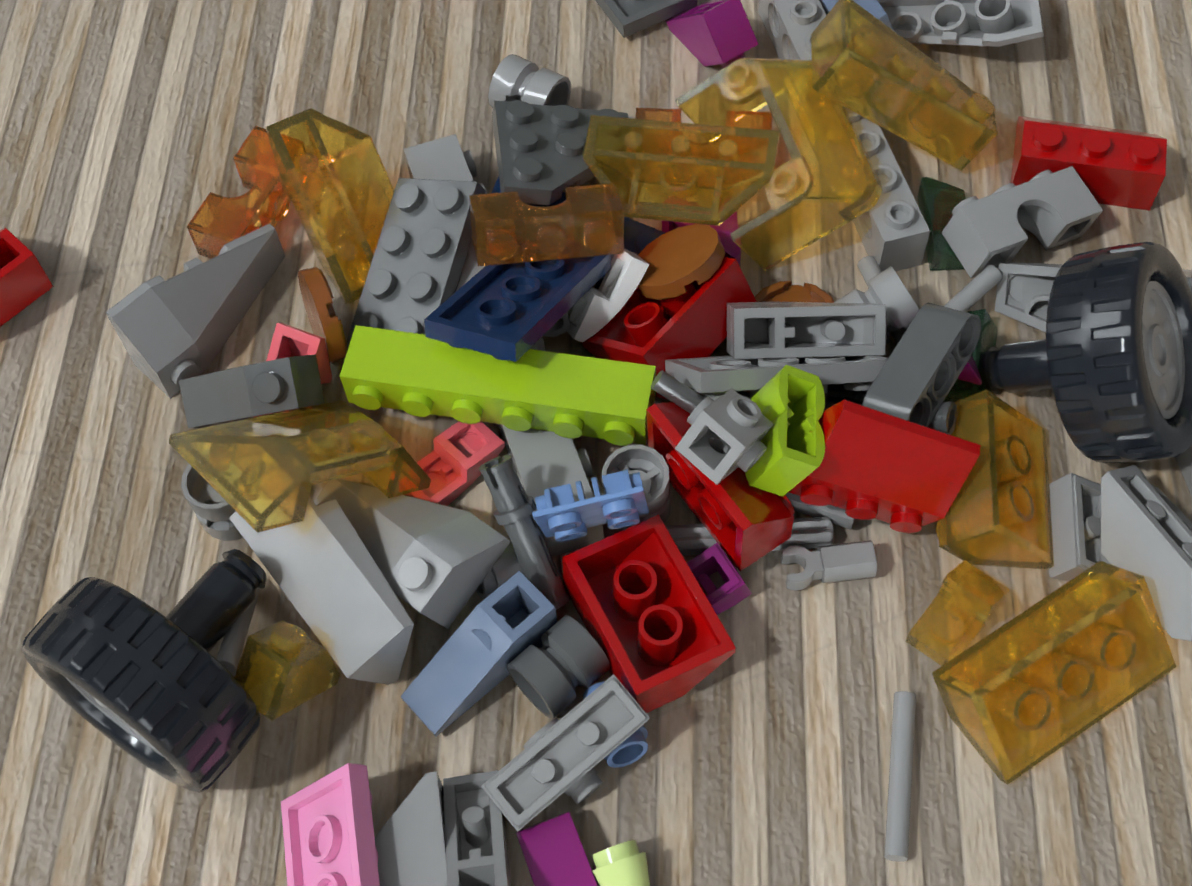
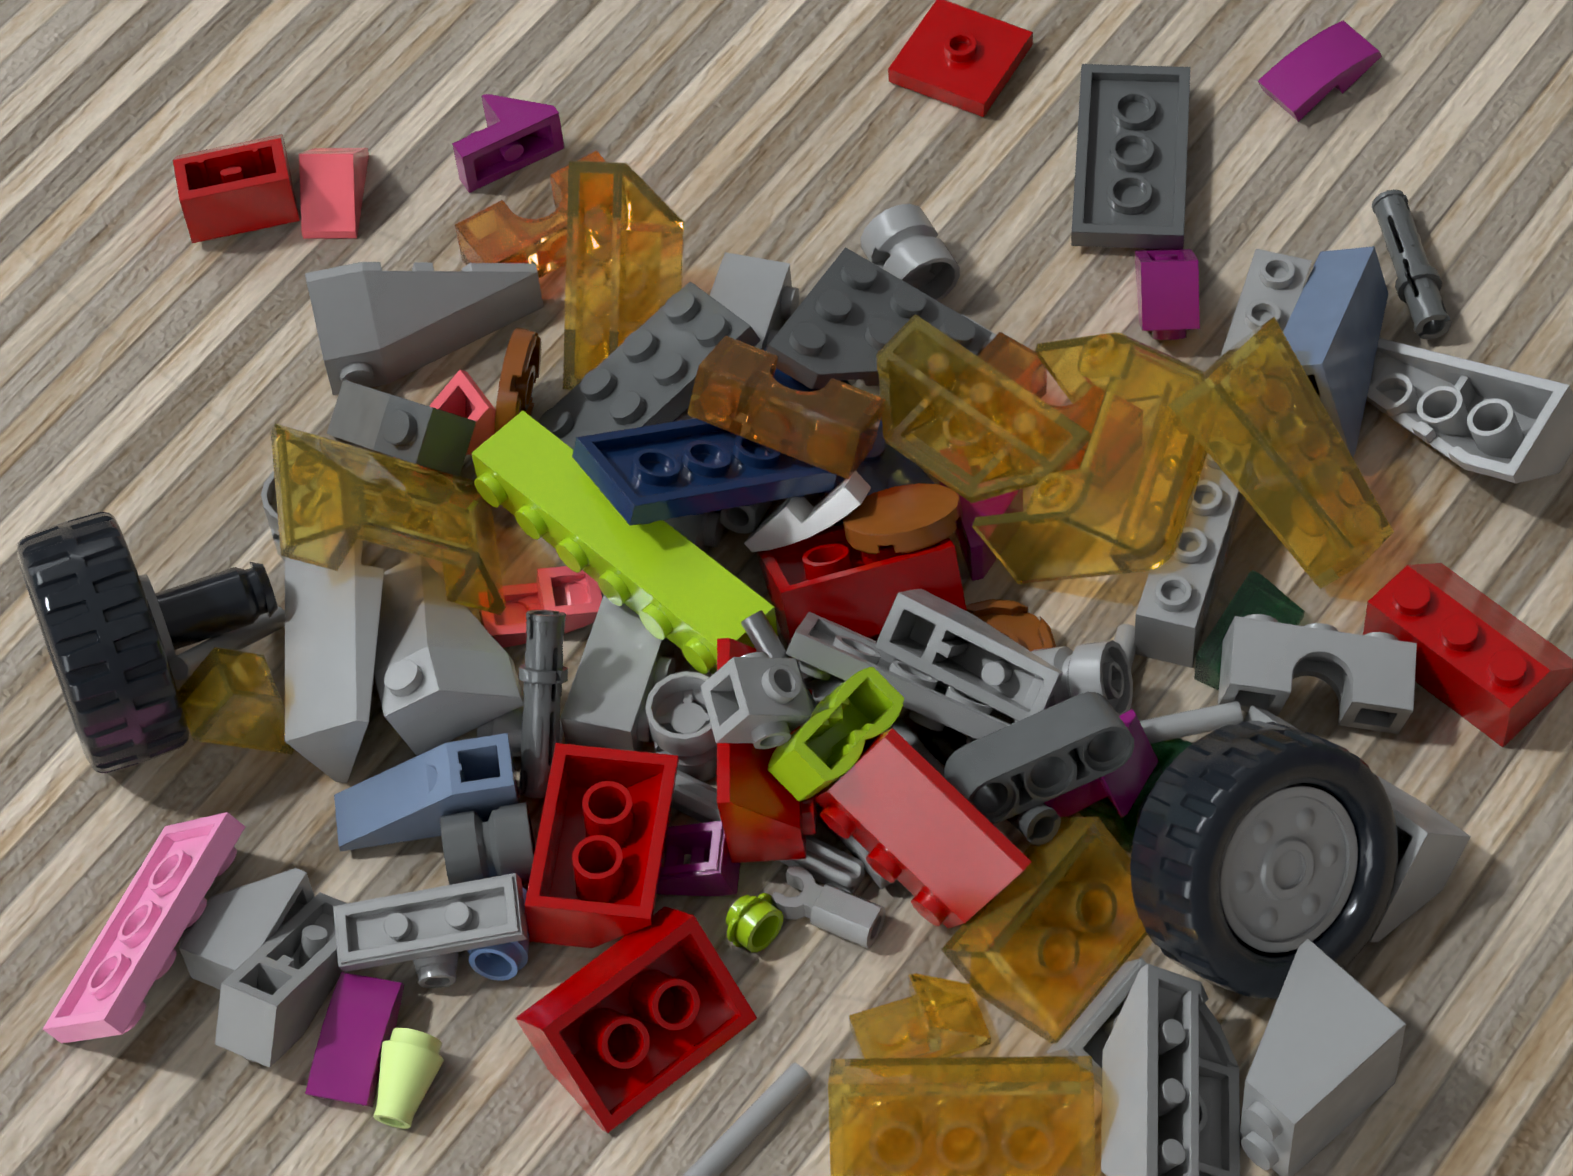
camera: 35 degrees right, 5 degrees down
(66, 254) = (332, 191): none -> coral slope
(176, 152) = (514, 138): none -> magenta slope
(567, 520) = (596, 702): medium blue hinge -> none
(763, 729) = (637, 1017): none -> red slope
(786, 605) = (753, 922): none -> lime plate

